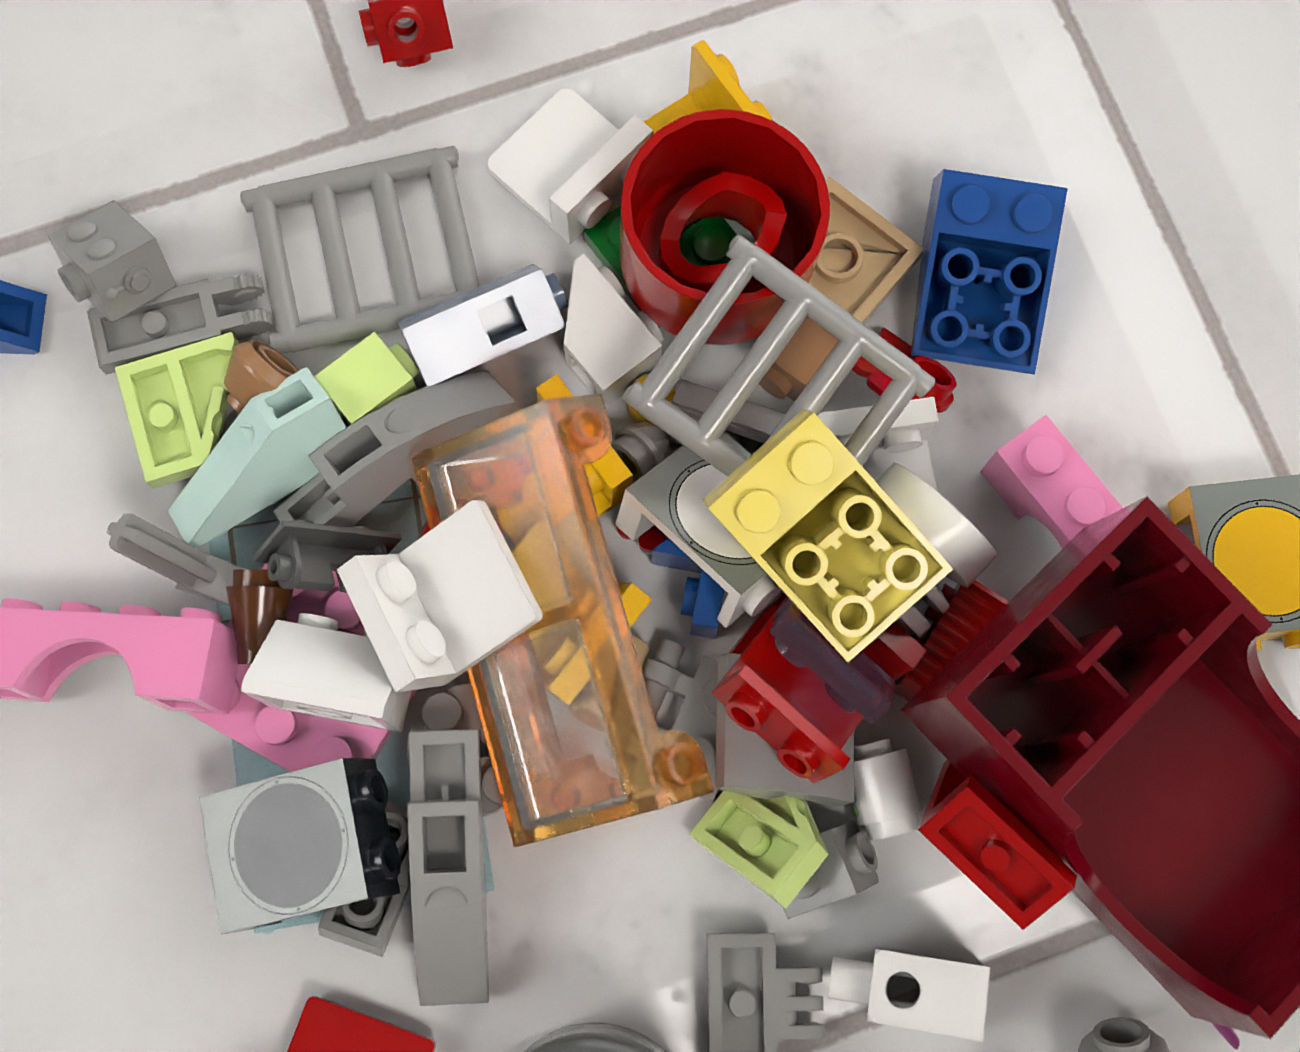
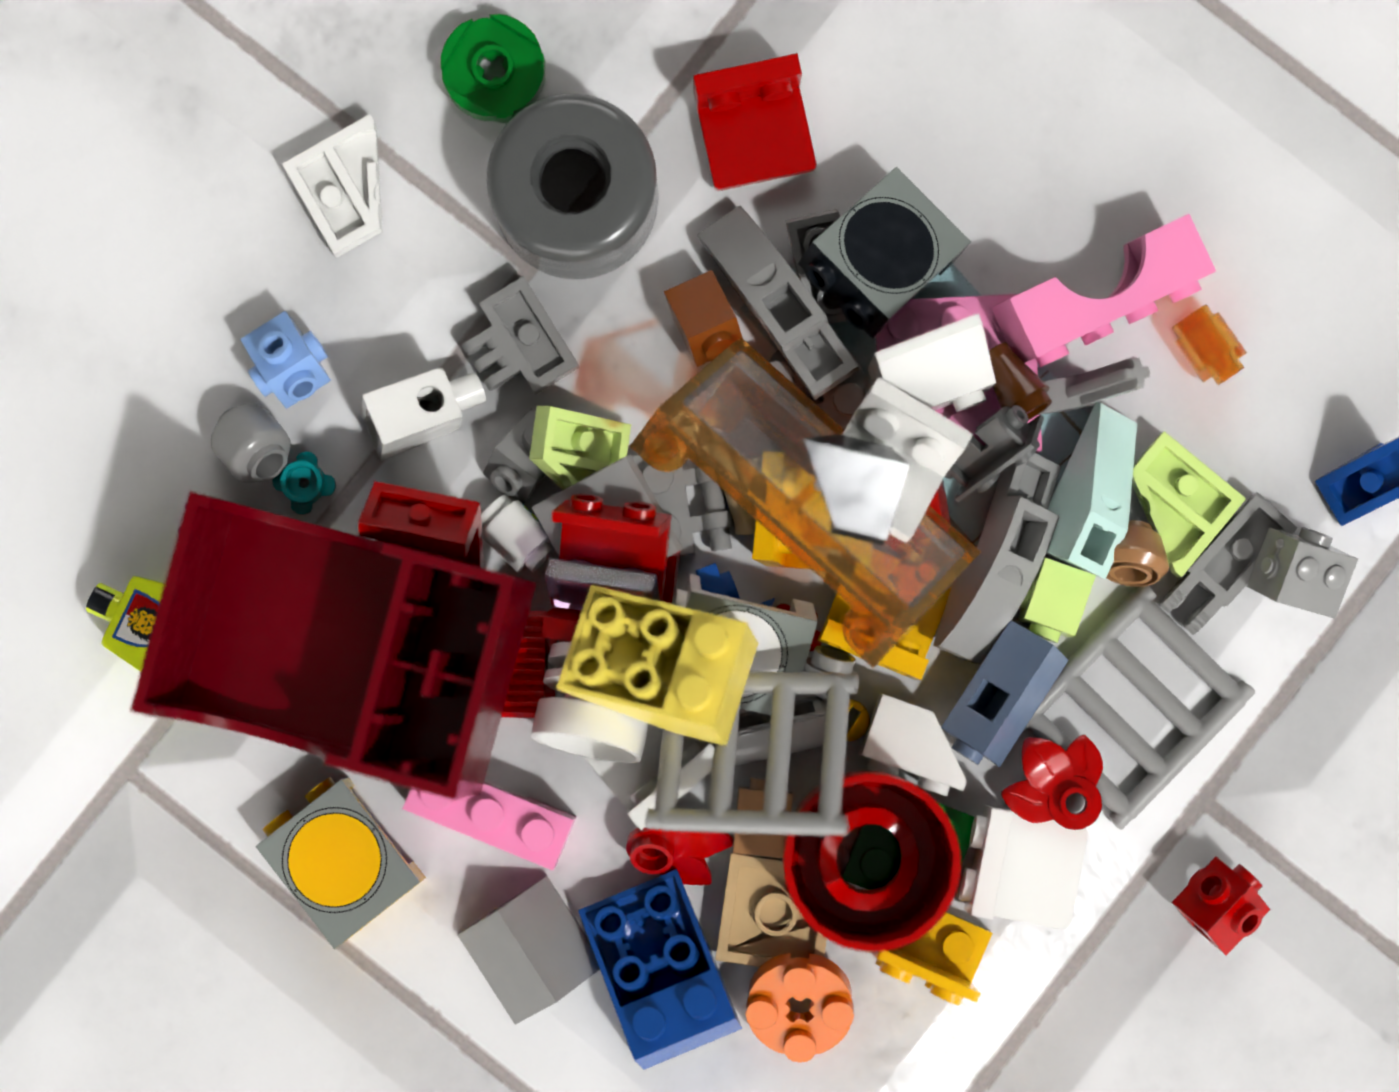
camera: 150 degrees right, 10 degrees up
(38, 541) = (1209, 345): none -> clear orange brick
(486, 221) = (1052, 777): none -> red plate
(490, 583) = (858, 484): none -> slope
(539, 898) = (703, 317): none -> dark orange brick
(852, 143) = (796, 1033): none -> orange plate
(1101, 366) = (531, 950): none -> light grey slope
(1103, 996) = (319, 483): none -> teal plate

